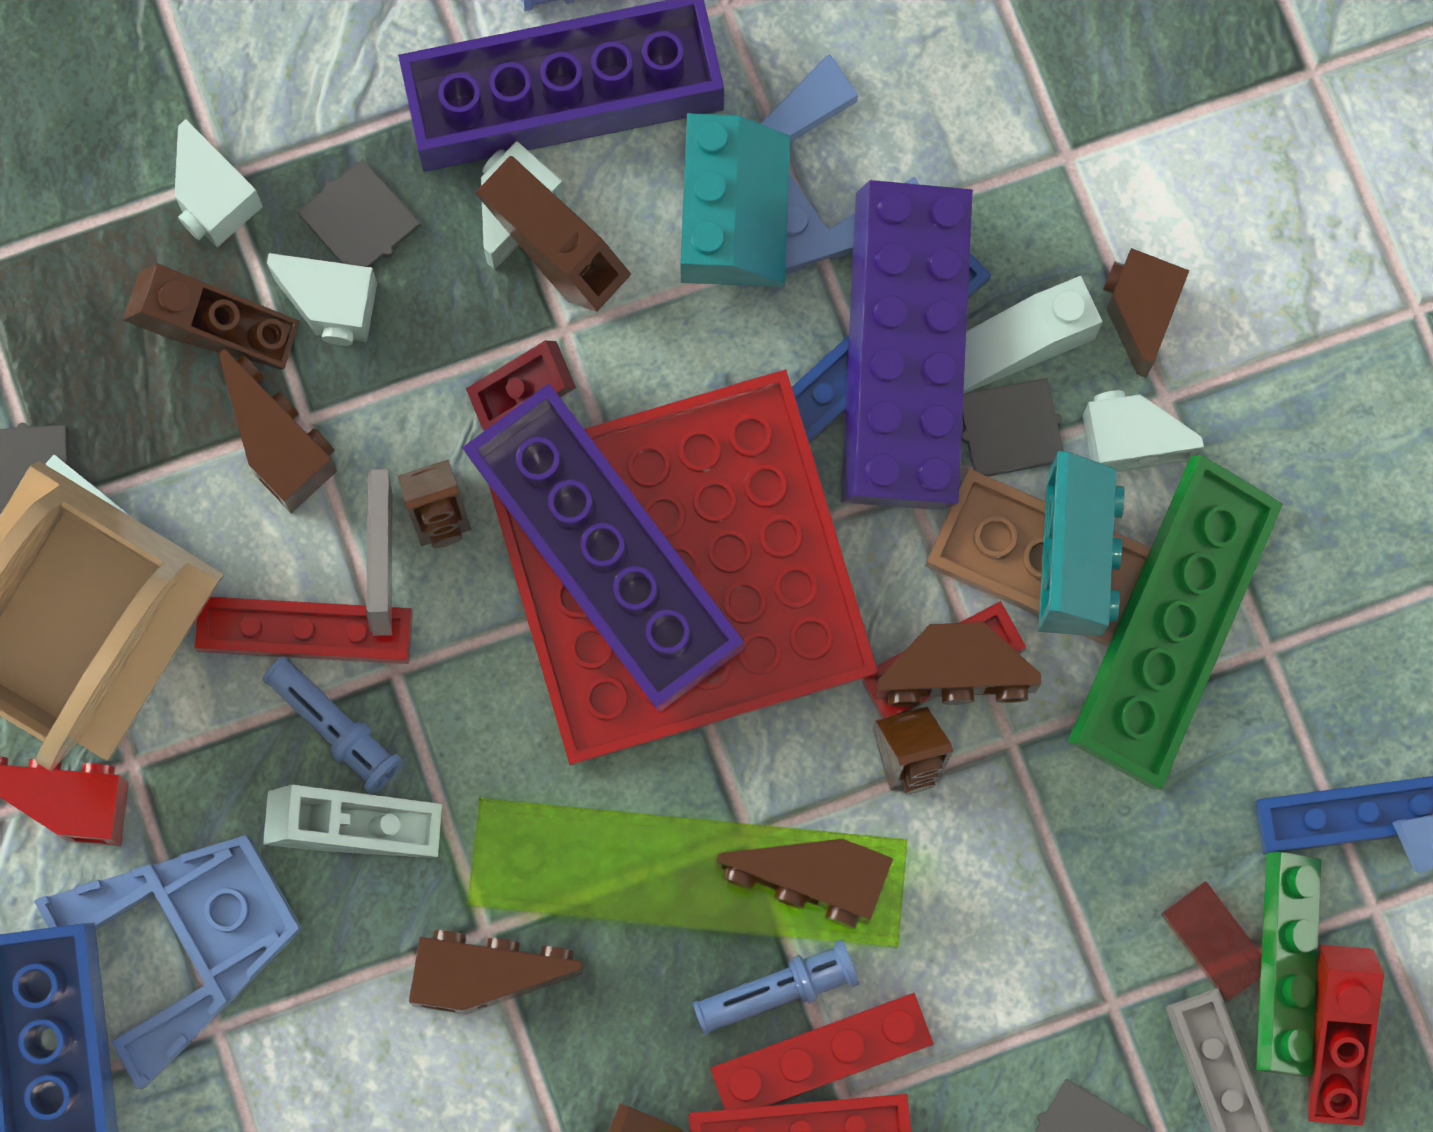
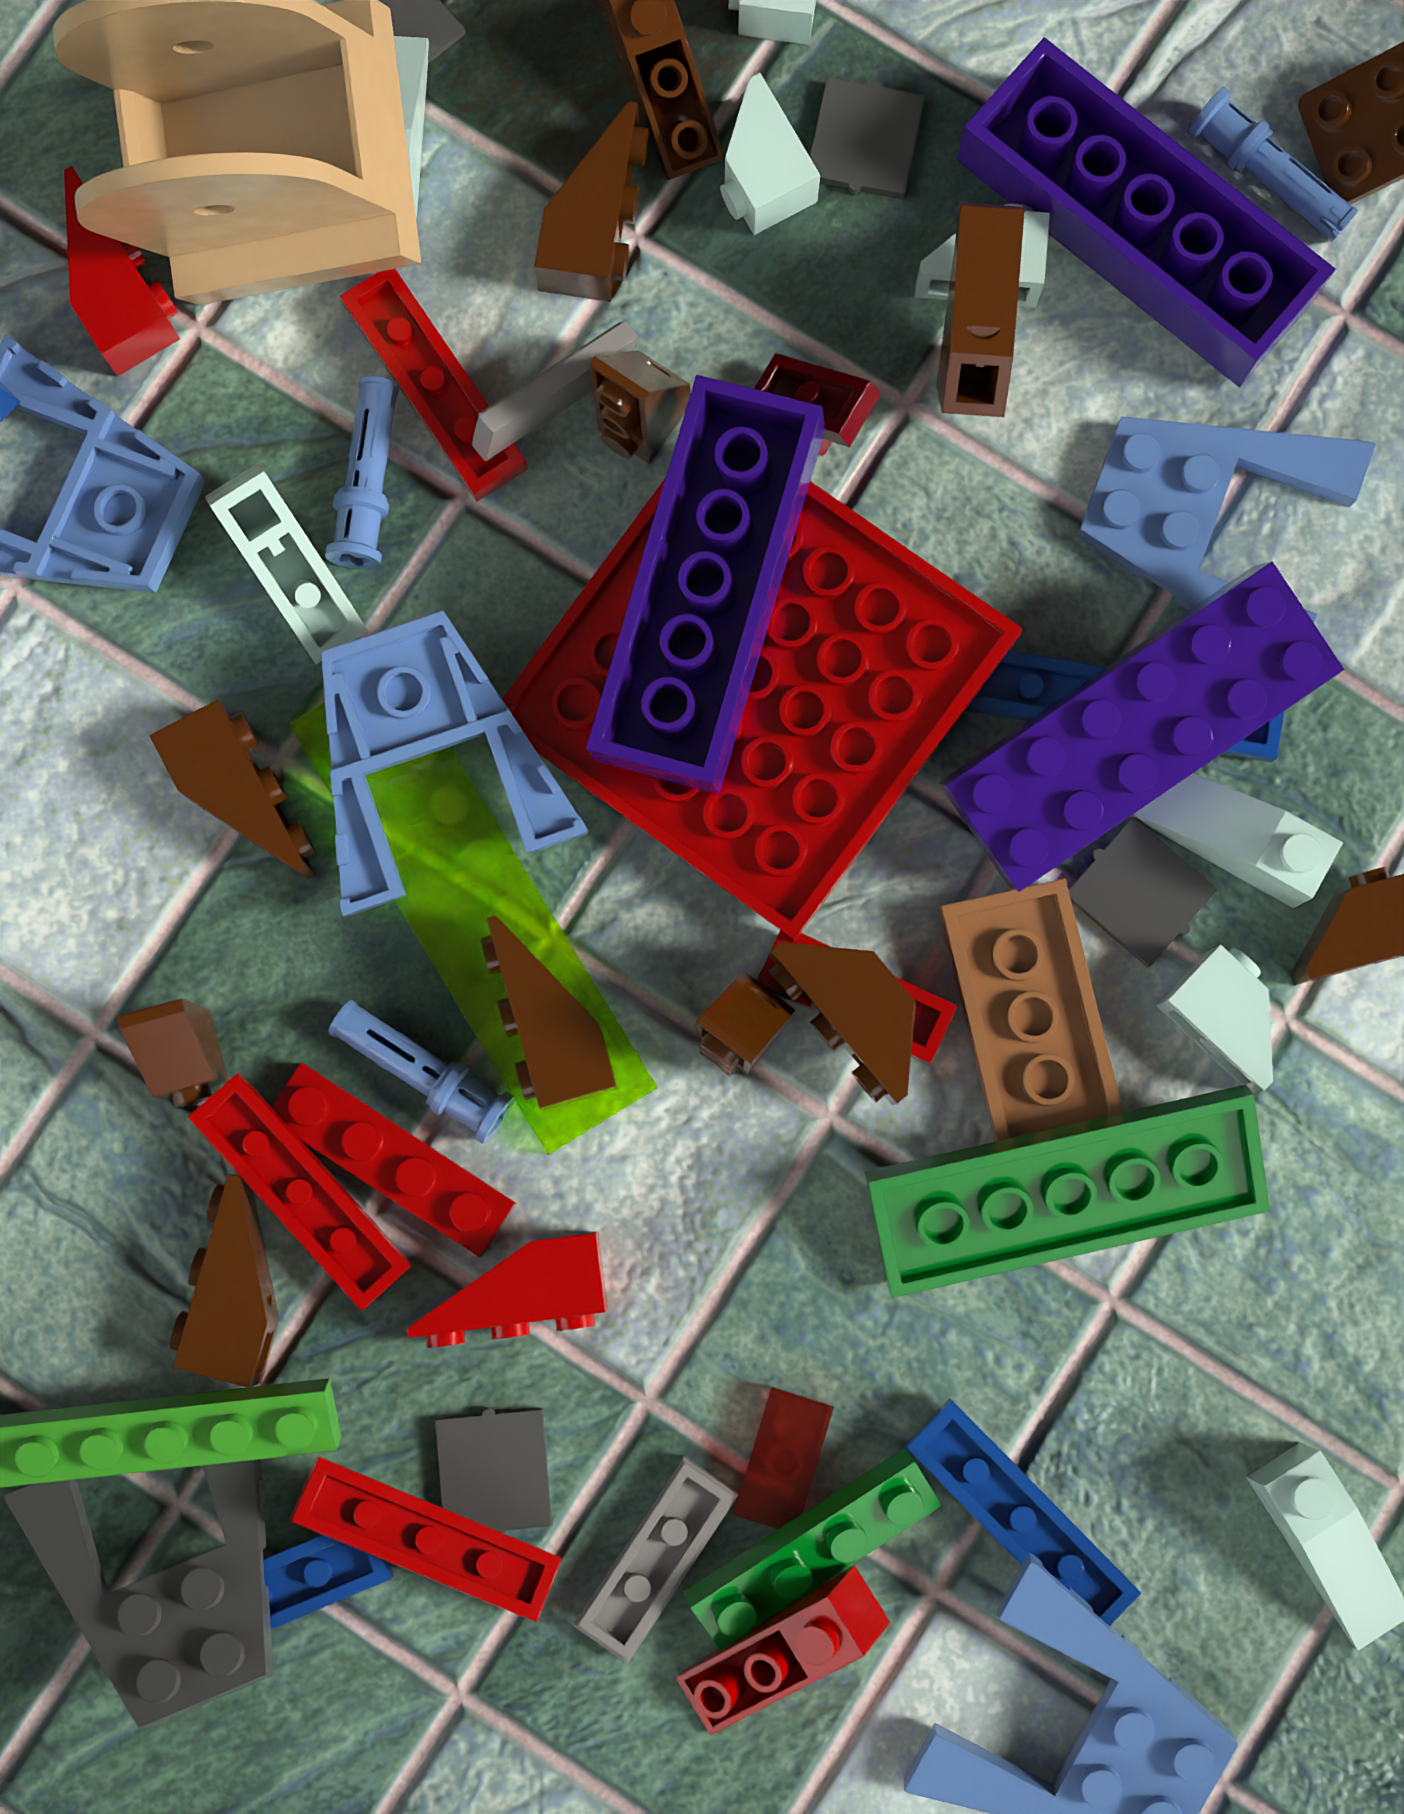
camera: 55 degrees right, 5 degrees up
(519, 807) = (405, 699): none -> medium blue wing
(734, 202) = (1151, 456): teal slope -> none
(978, 1019) = (536, 1283): none -> red slope
(1080, 547) = (1067, 1042): teal slope -> none

